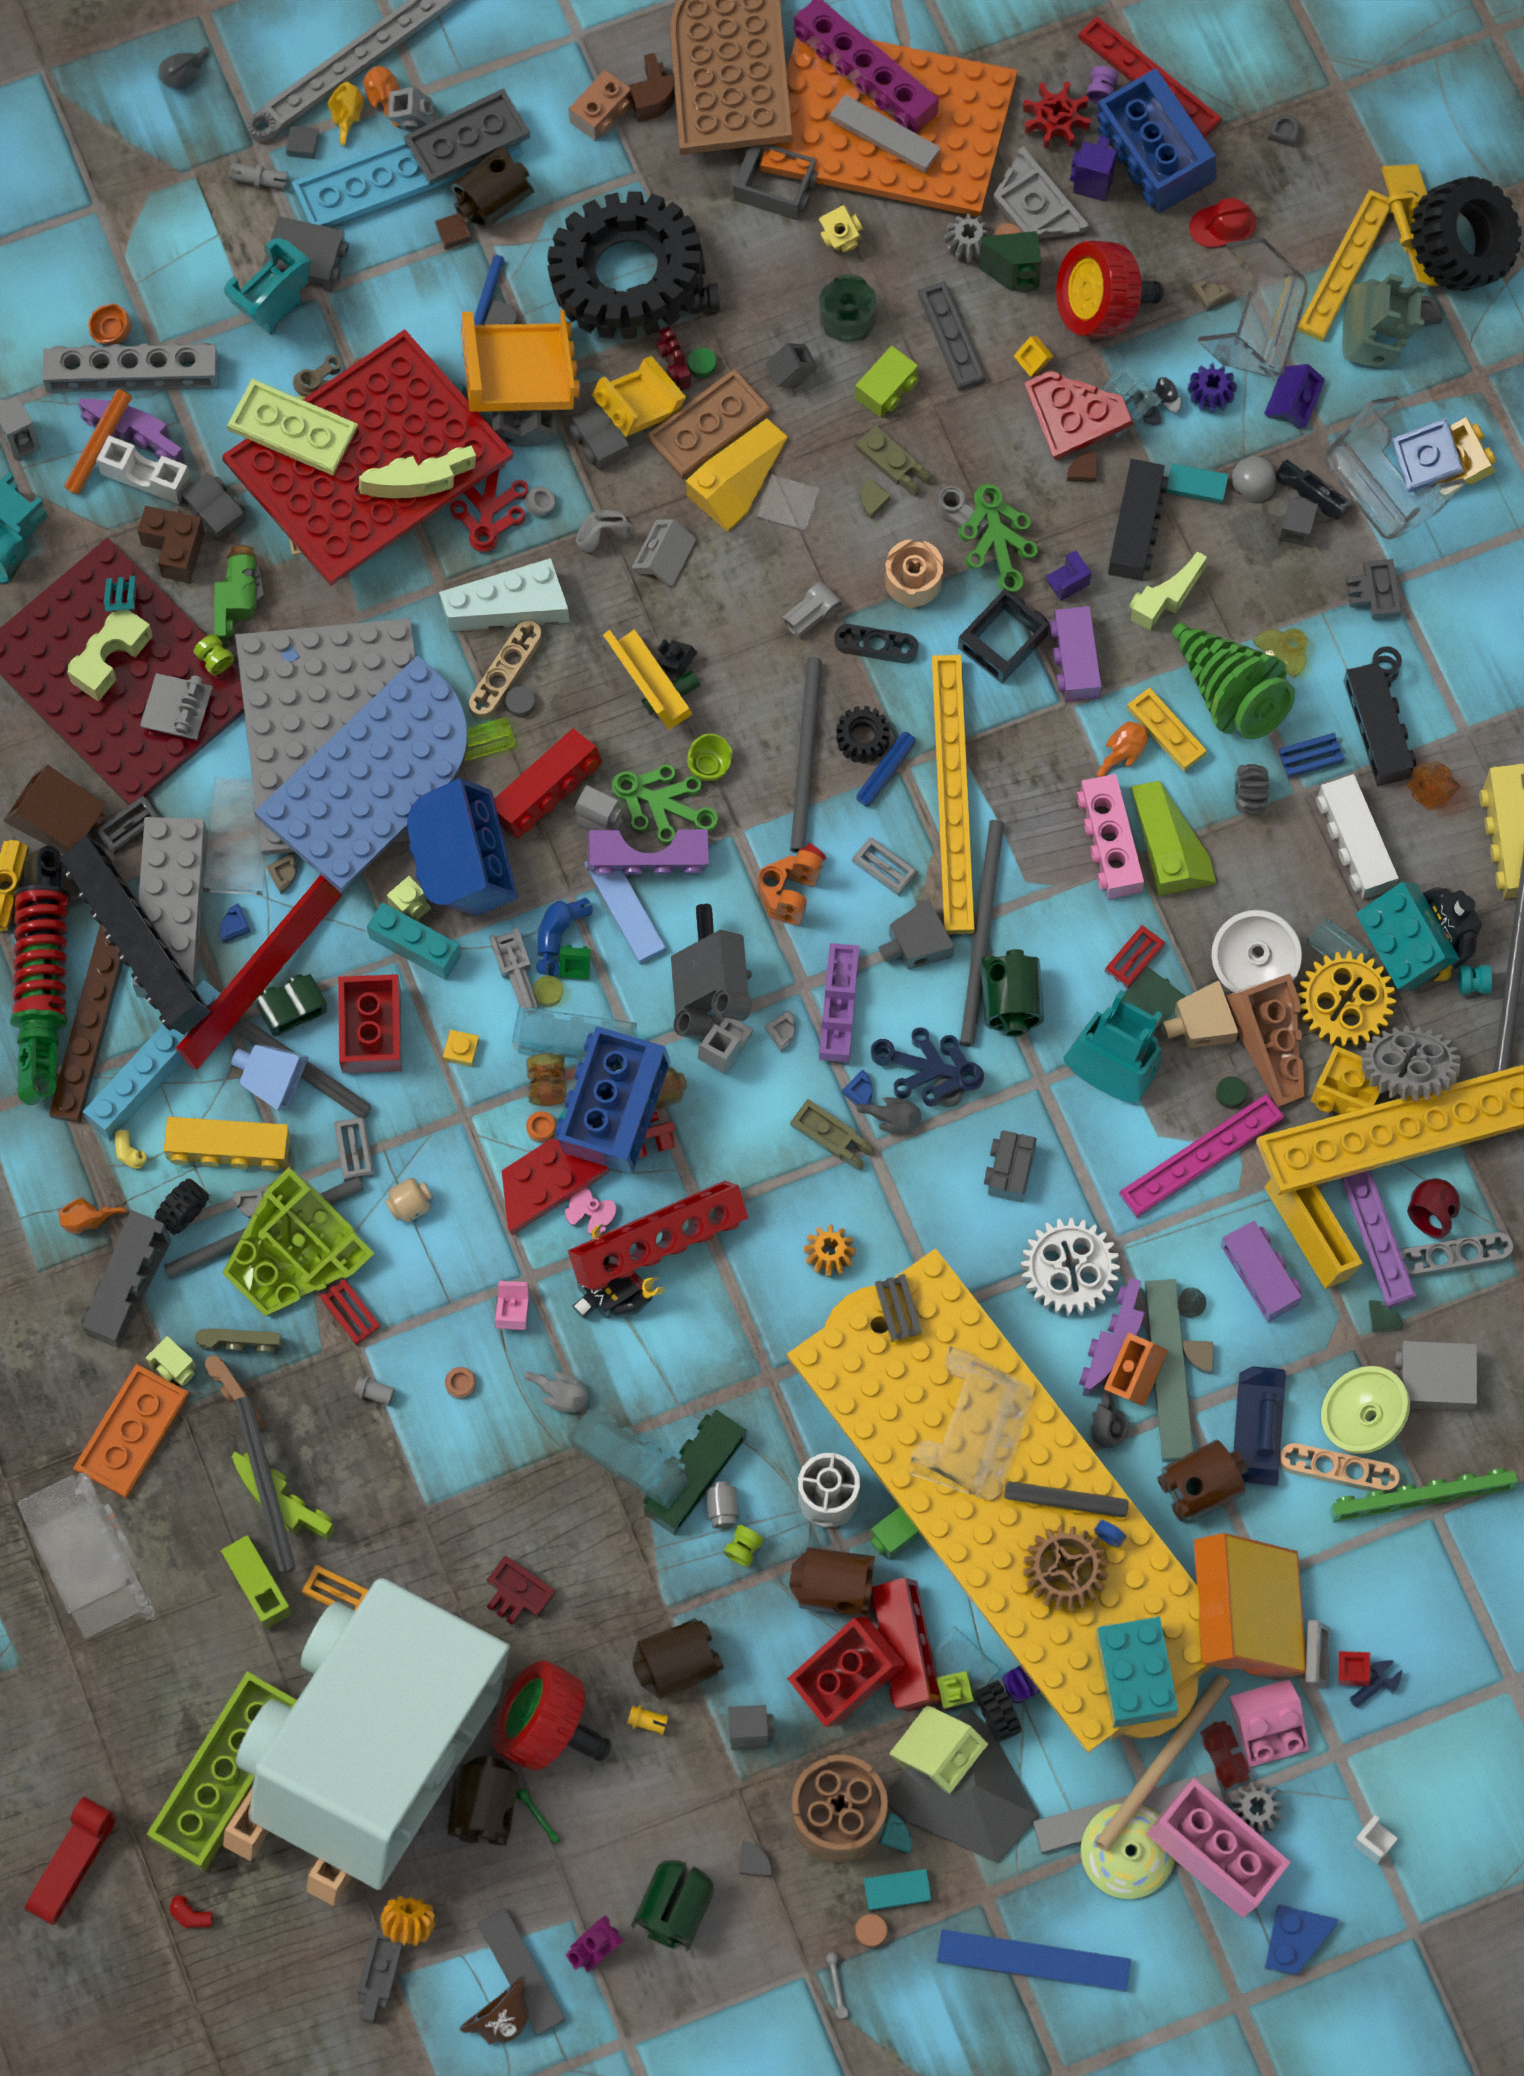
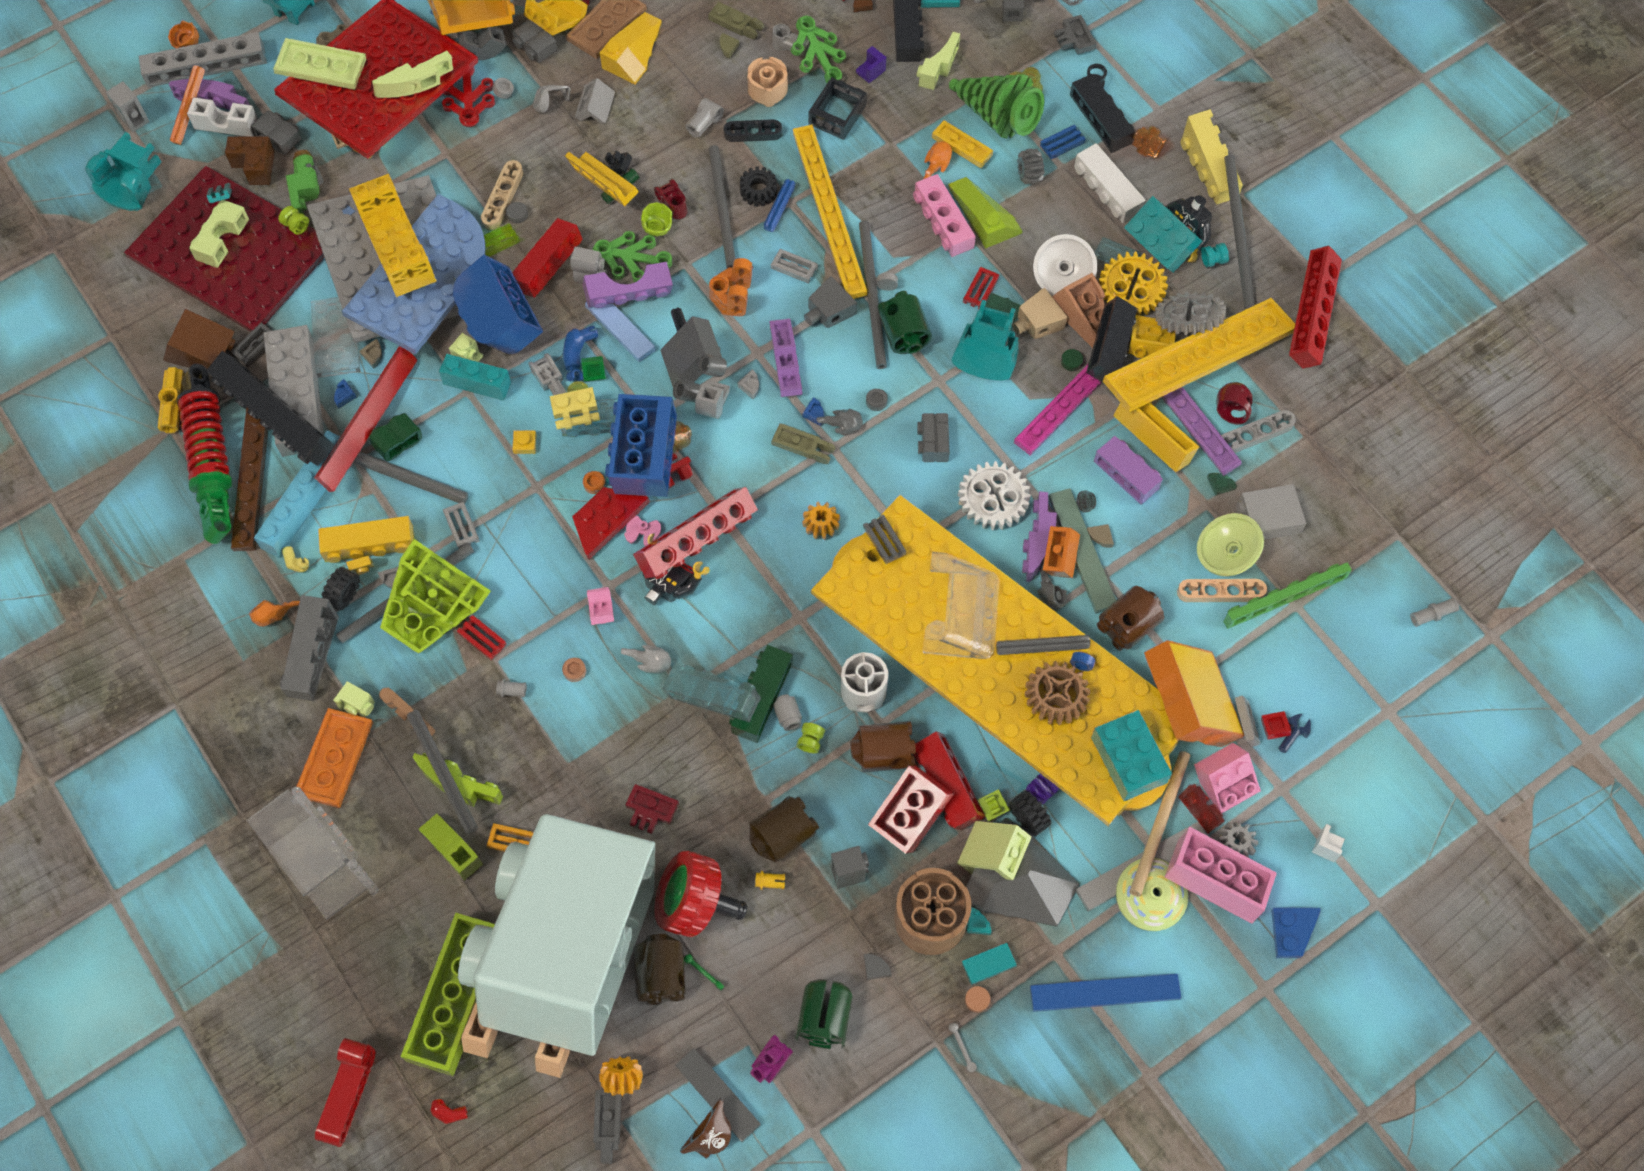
camera: 15 degrees left, 5 degrees down
(176, 706) = (274, 258): light grey hinge -> none
(213, 1178) = (360, 565): none -> yellow plate
(238, 1339) = (401, 674): olive hinge -> none
(270, 1073) = (389, 484): light blue torso -> none
(343, 716) = (392, 235): none -> yellow plate
(370, 1023) = (454, 436): red brick -> none
(409, 1200) = (509, 550): tan head -> none
(507, 599) = (493, 149): light aqua wedge -> none
(536, 1013) = (574, 403): none -> light yellow plate
(547, 1083) = (590, 448): clear orange wheel -> none
(738, 724) = (673, 198): none -> dark red piece
(788, 503) = (671, 59): clear piece -> none
(893, 1534) = (918, 704): bright green brick -> none
(930, 1068) = (885, 384): dark blue plant -> none
(1006, 920) = (887, 281): none -> light grey tile
(1075, 654) = (889, 110): medium lavender brick -> none
(1260, 1423) = (1156, 569): dark blue piece -> none
(1290, 1079) = (1112, 338): none -> black brick

